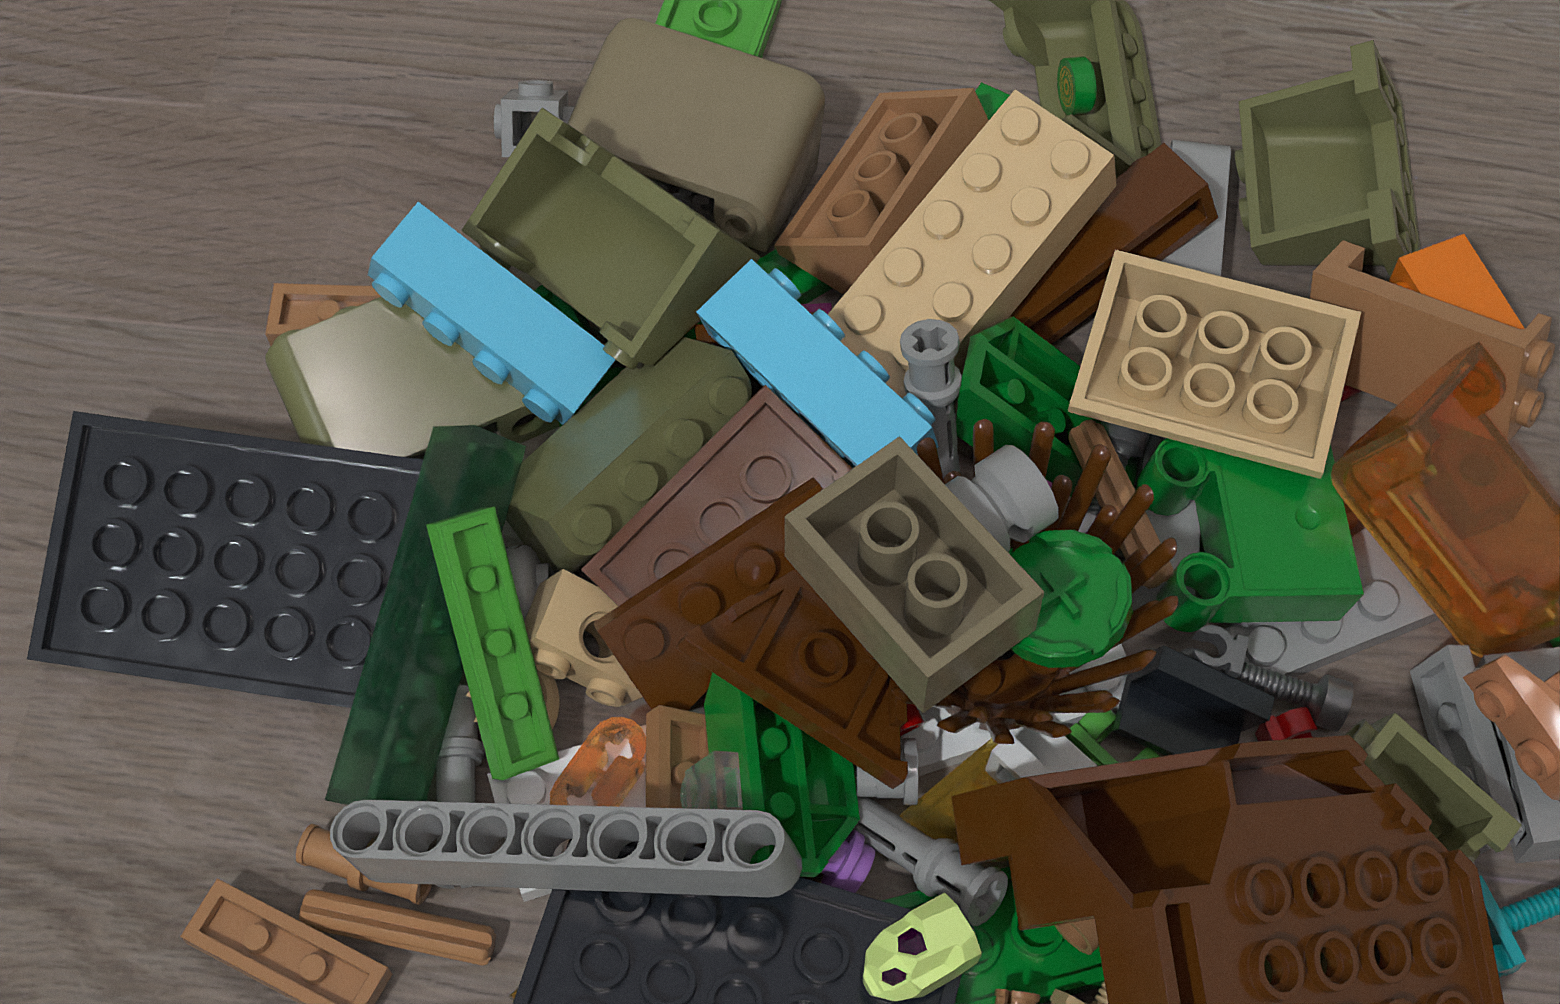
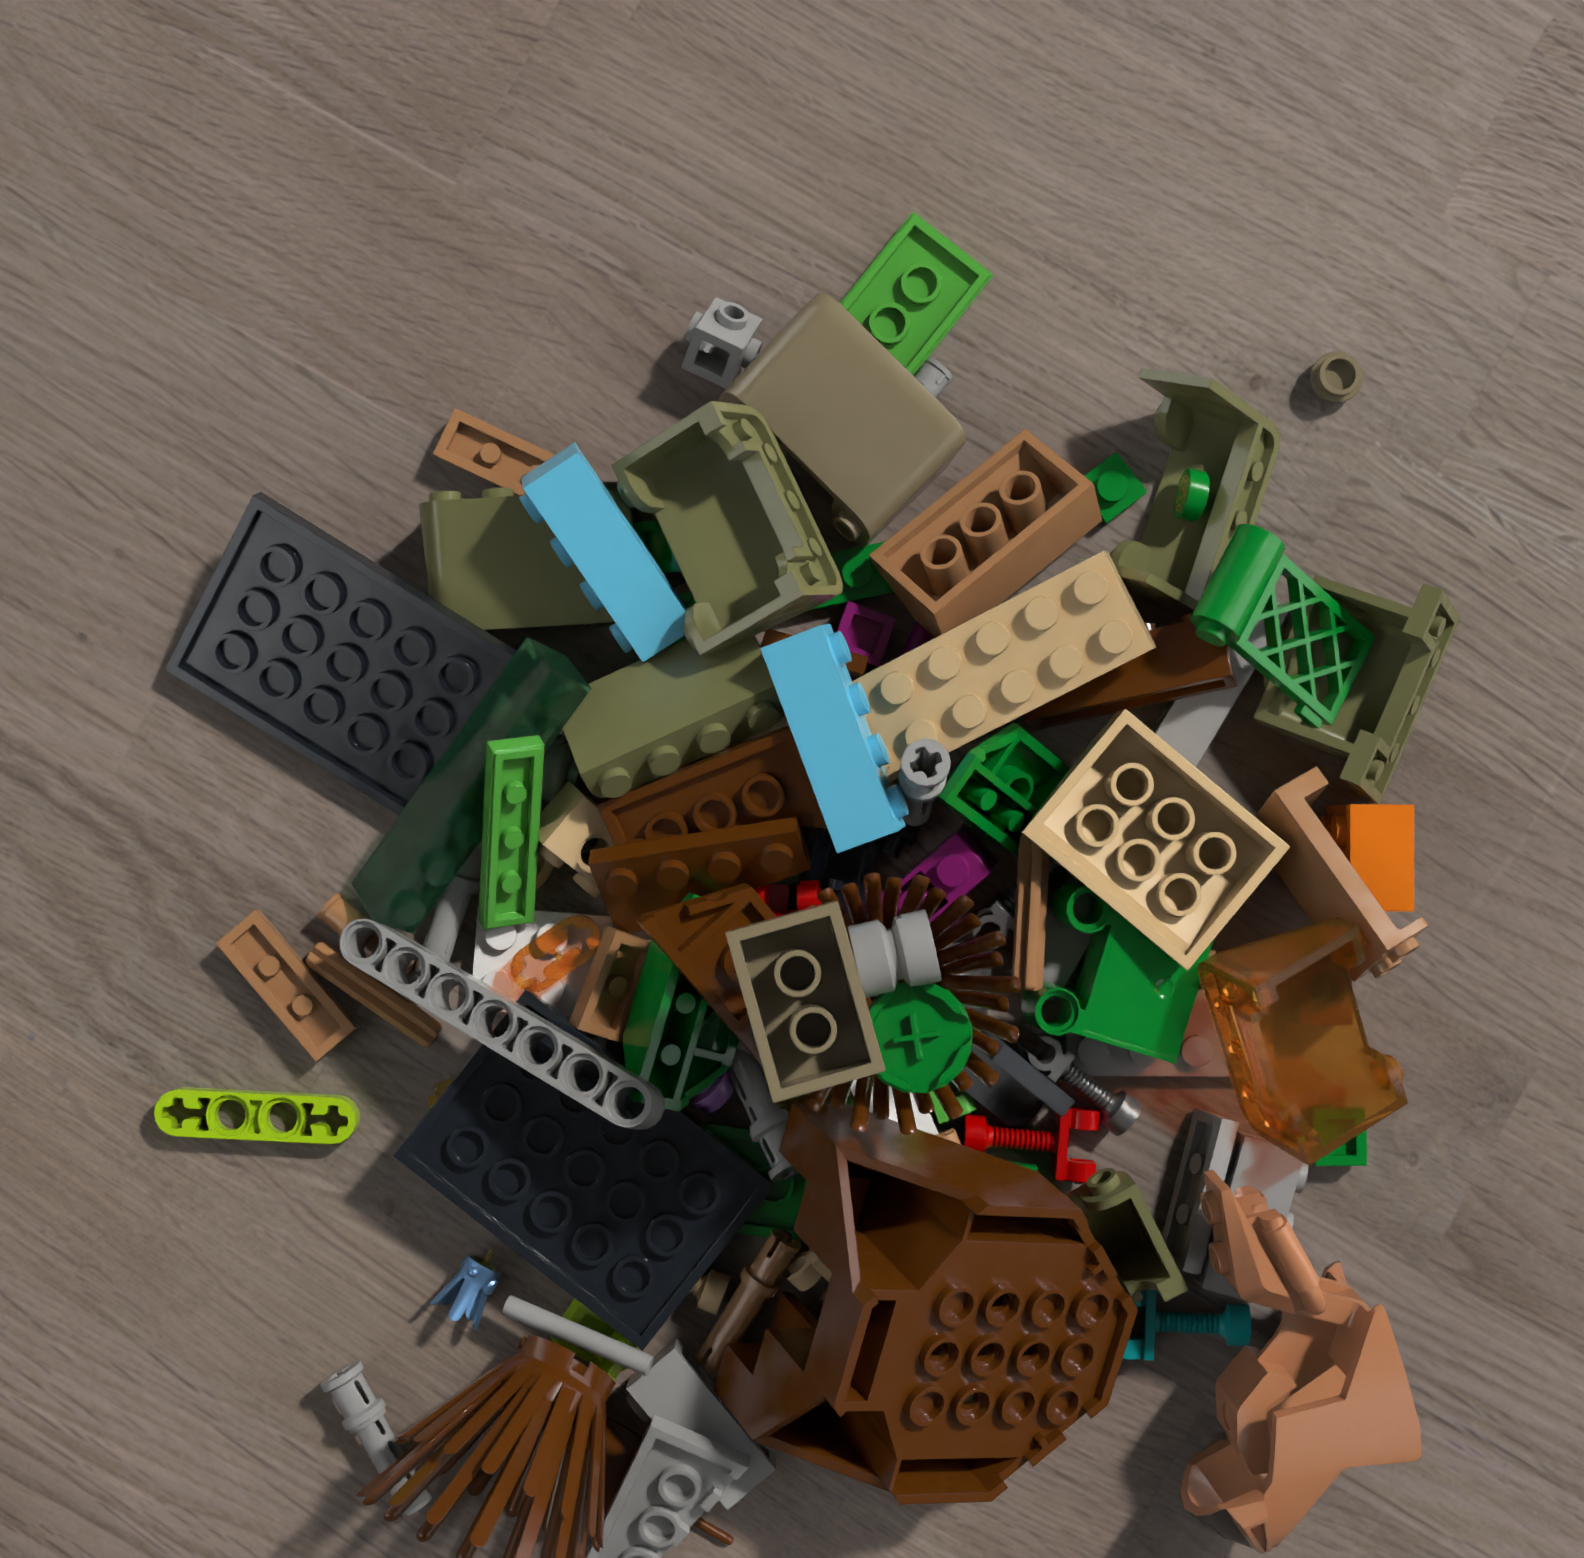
camera: 20 degrees right, 25 degrees up
(713, 783) = (626, 1018): clear plate -> none
(920, 952) = (723, 1195): yellowish green rock -> none
(1177, 116) = (1244, 593): none -> green piece

